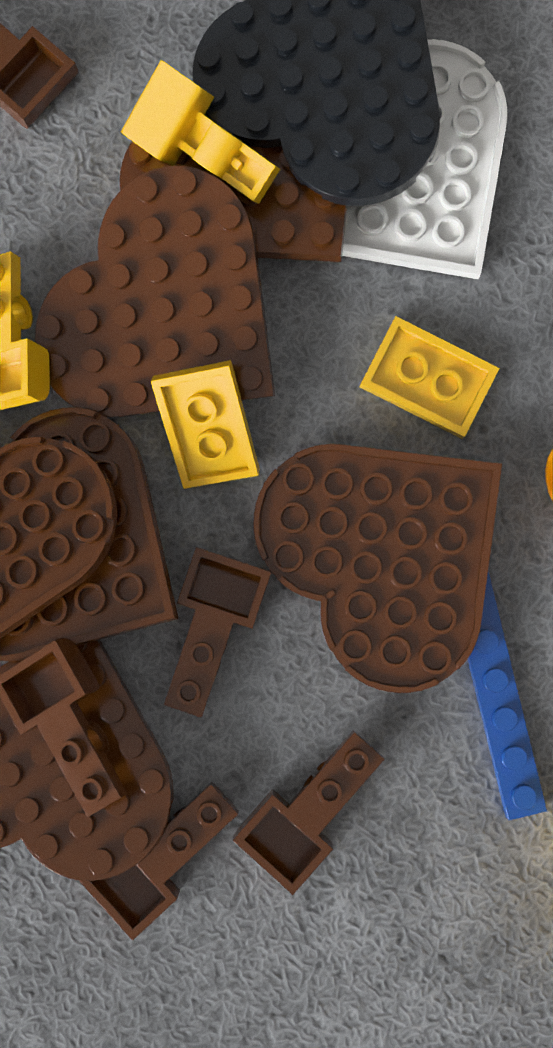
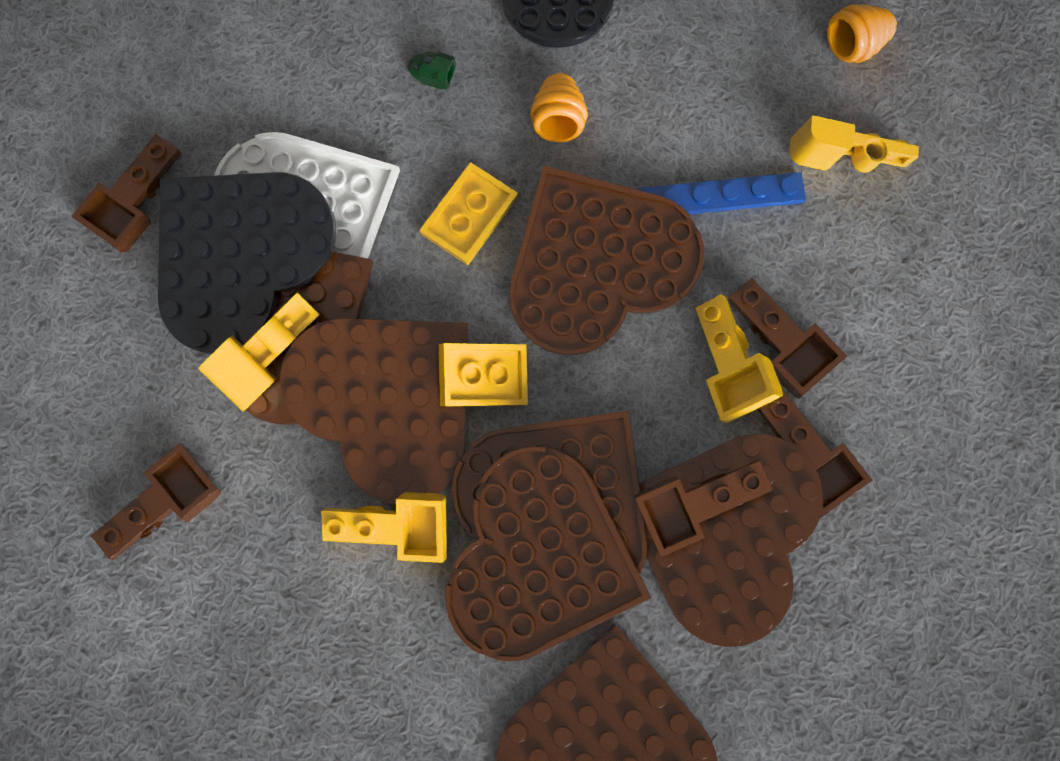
camera: 80 degrees left, 10 degrees down
(221, 594) = (615, 382): reddish brown plate -> none
(238, 758) = (742, 380): none -> yellow plate

